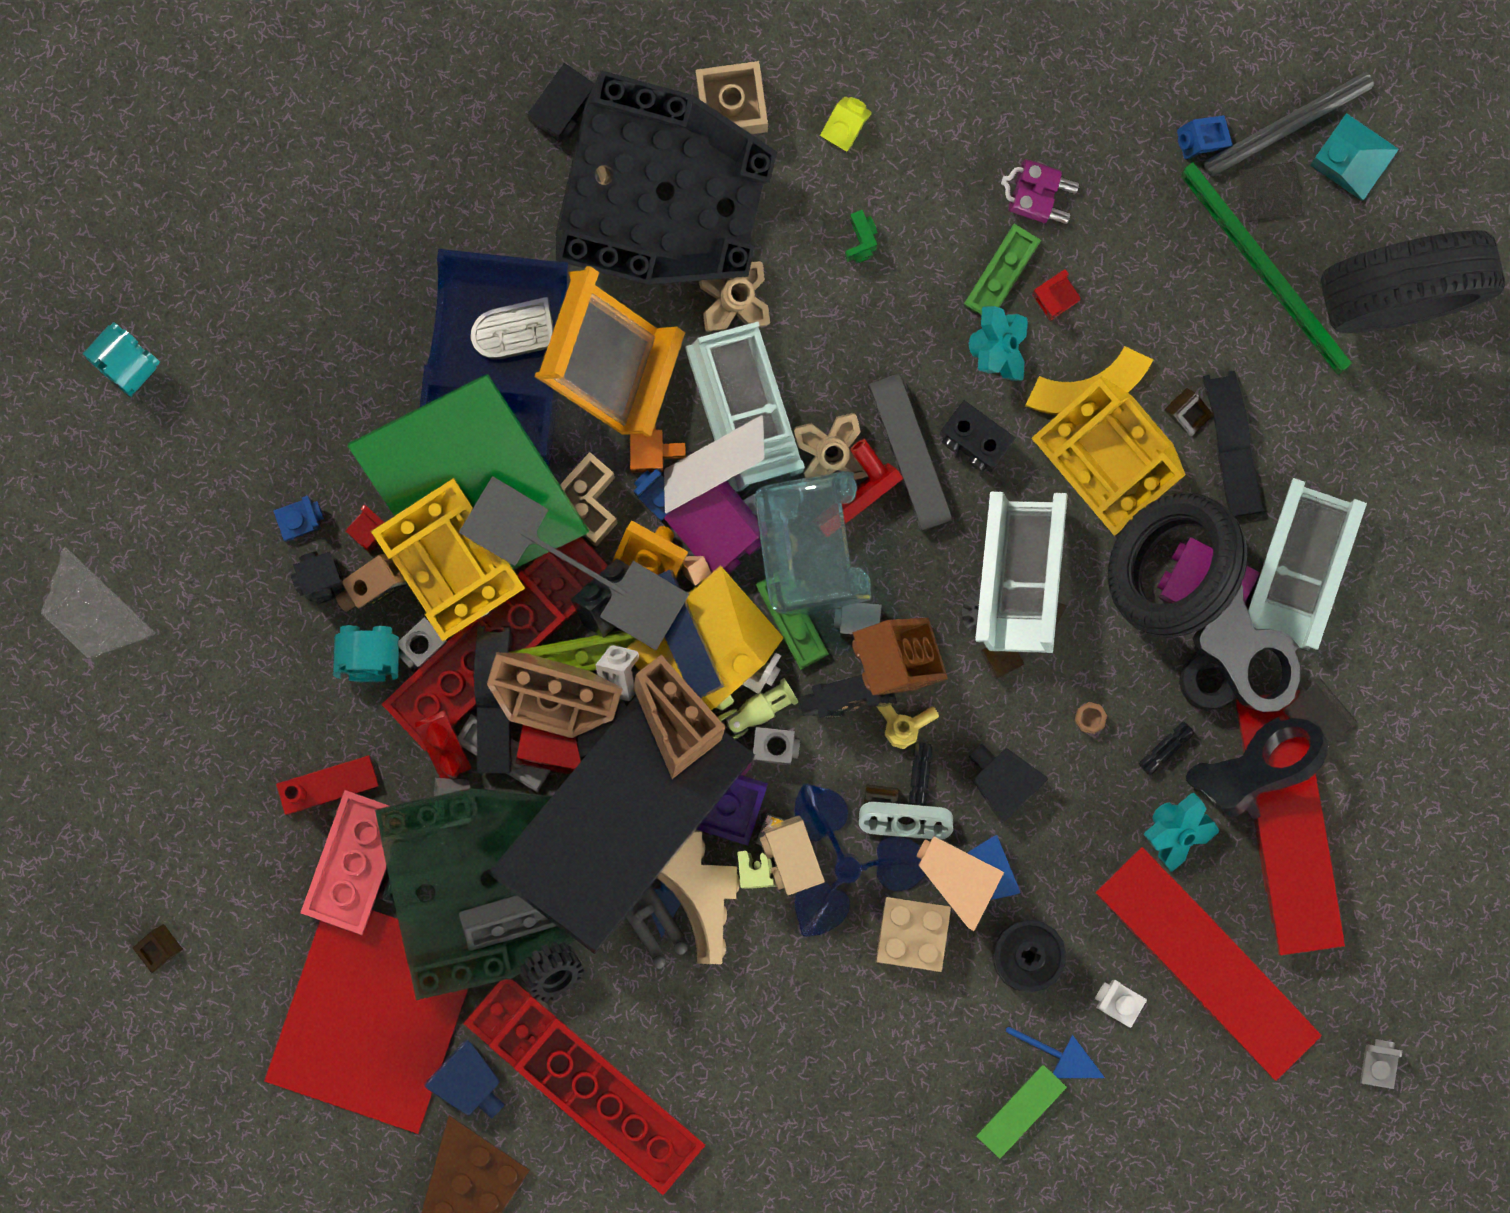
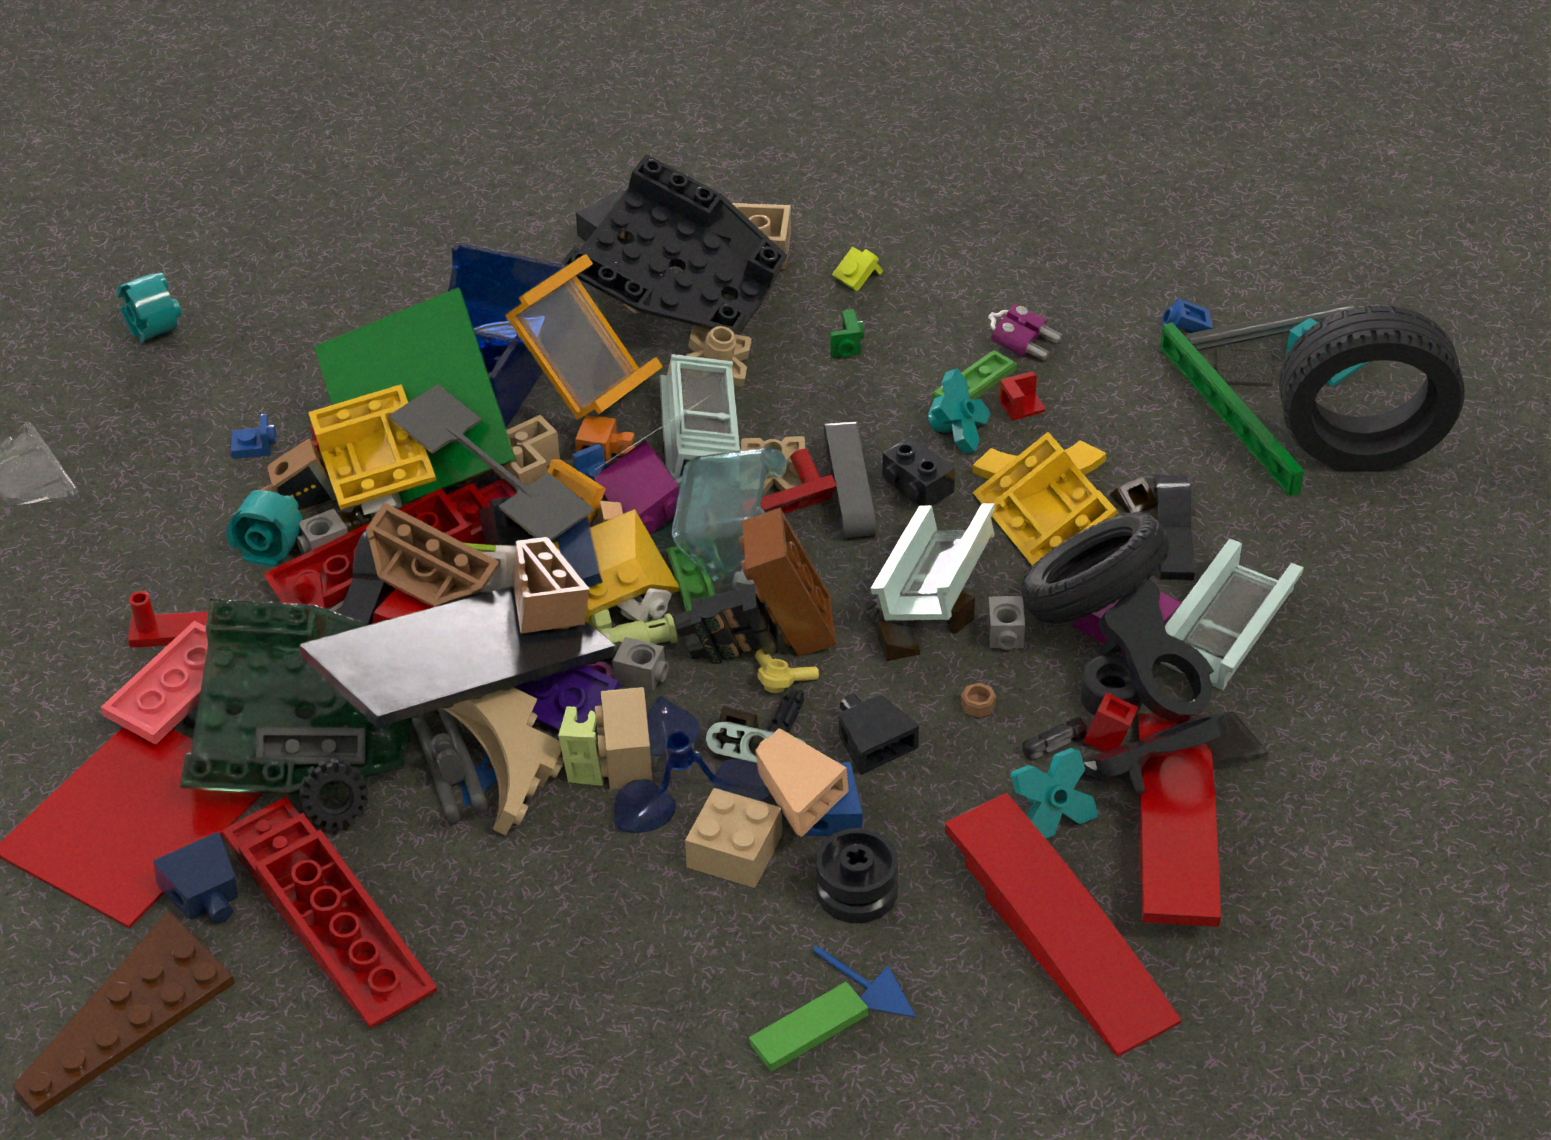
camera: 15 degrees right, 40 degrees down
(317, 577) = (247, 463): black brick -> none
(1102, 606) = (1006, 622): none -> light grey brick
(1120, 1002) = (948, 943): white bracket -> none
(1215, 729) = (1110, 723): none -> red panel
(1380, 1064) = (1248, 1055): light grey bracket -> none

